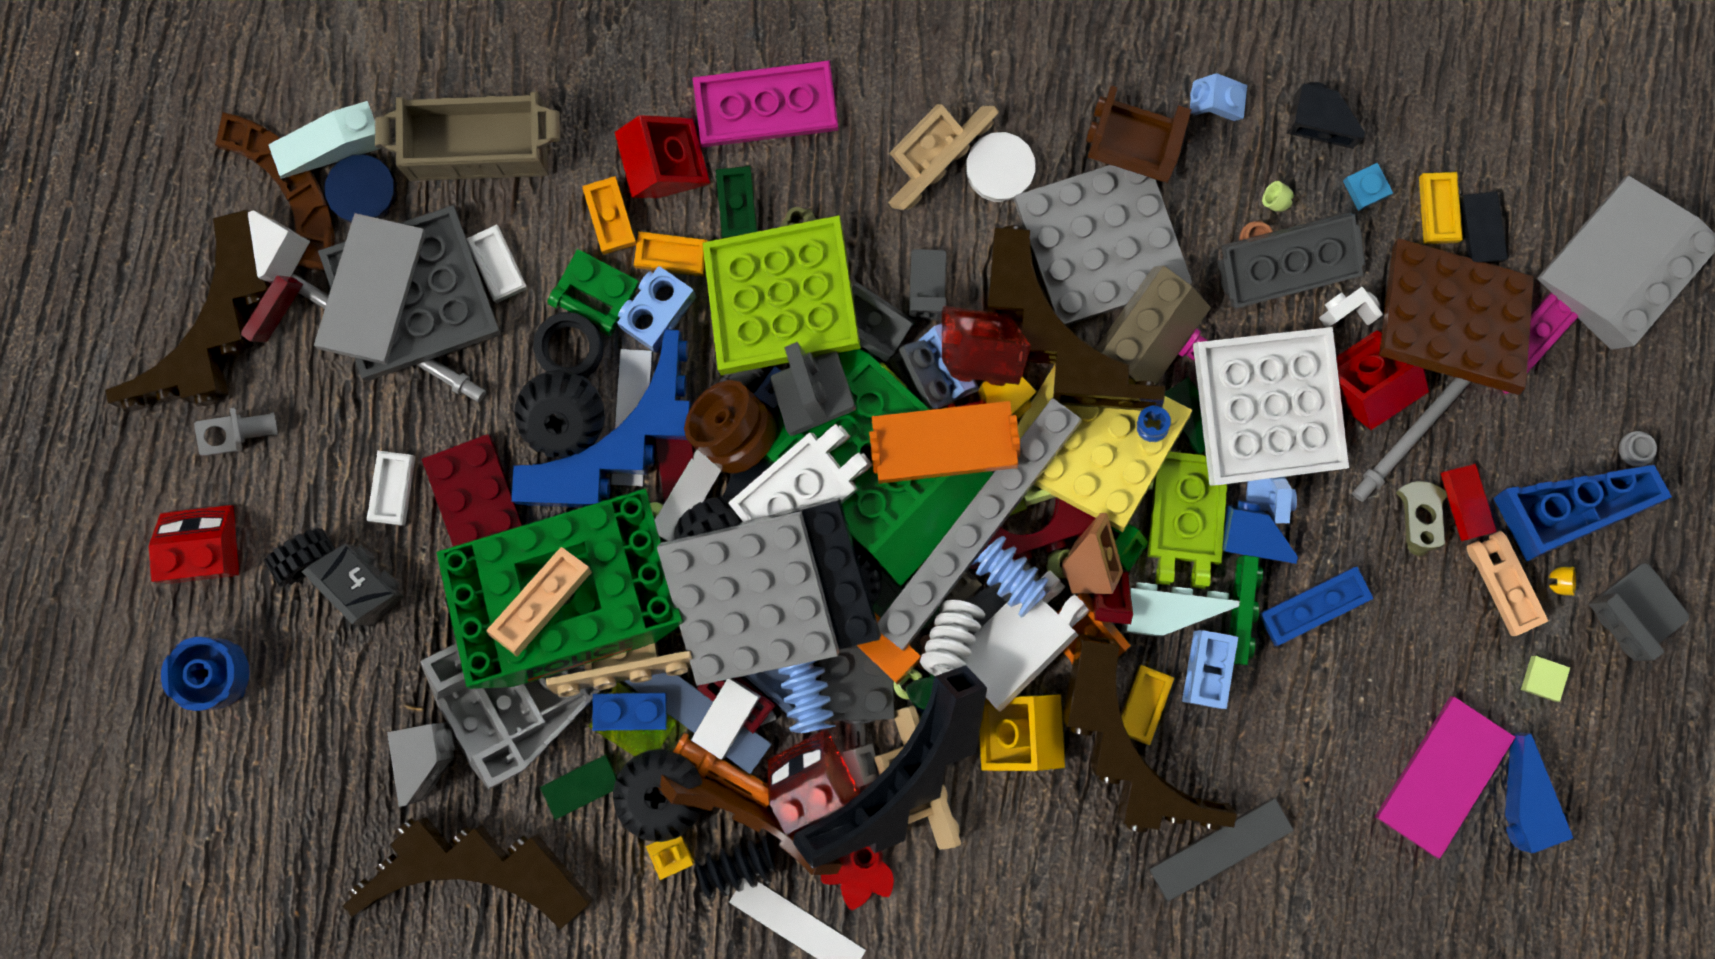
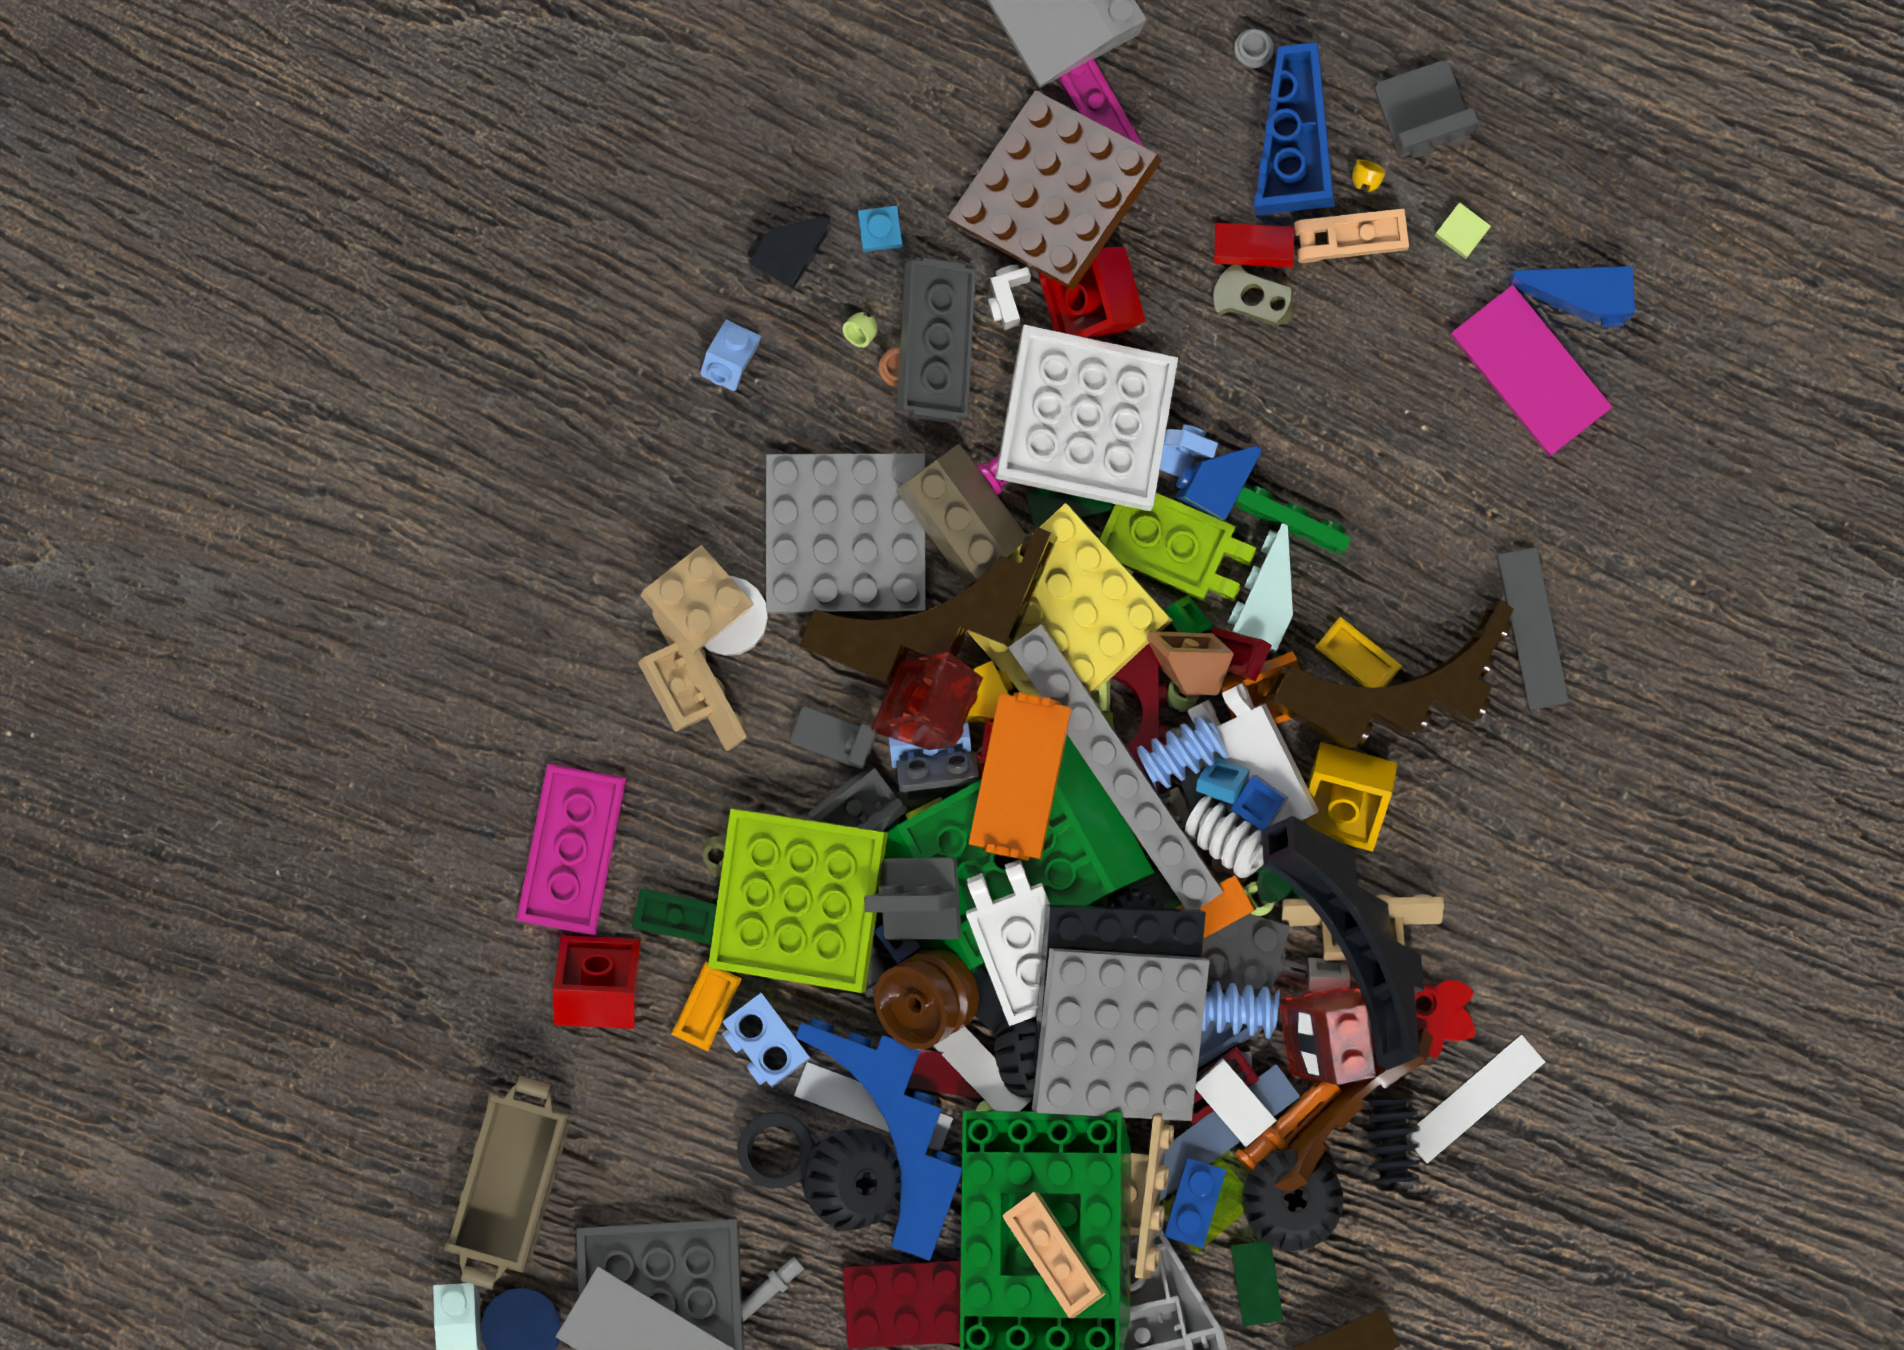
camera: 70 degrees left, 0 degrees up
(496, 264) = (655, 1202): white tile -> none
(598, 282) = (713, 1095): green plate -> none
(609, 215) = (643, 1060): light orange plate -> none
(670, 856) = (1360, 1210): yellow tile -> none
(990, 657) = (1259, 802): none -> blue plate
(999, 619) = (1223, 780): none -> dark azure plate
(1005, 132) = (696, 599): none -> tan plate
(1136, 137) = (747, 459): reddish brown panel -> none
(1155, 413) = (1058, 544): blue bush -> none
(1210, 669) = (1343, 577): light blue brick -> none
(1315, 606) = (1312, 443): blue plate -> none
(1375, 477) = (1196, 333): light grey bar -> none
(1440, 208) = (928, 160): yellow tile -> none
(1483, 227) = (965, 123): black tile -> none

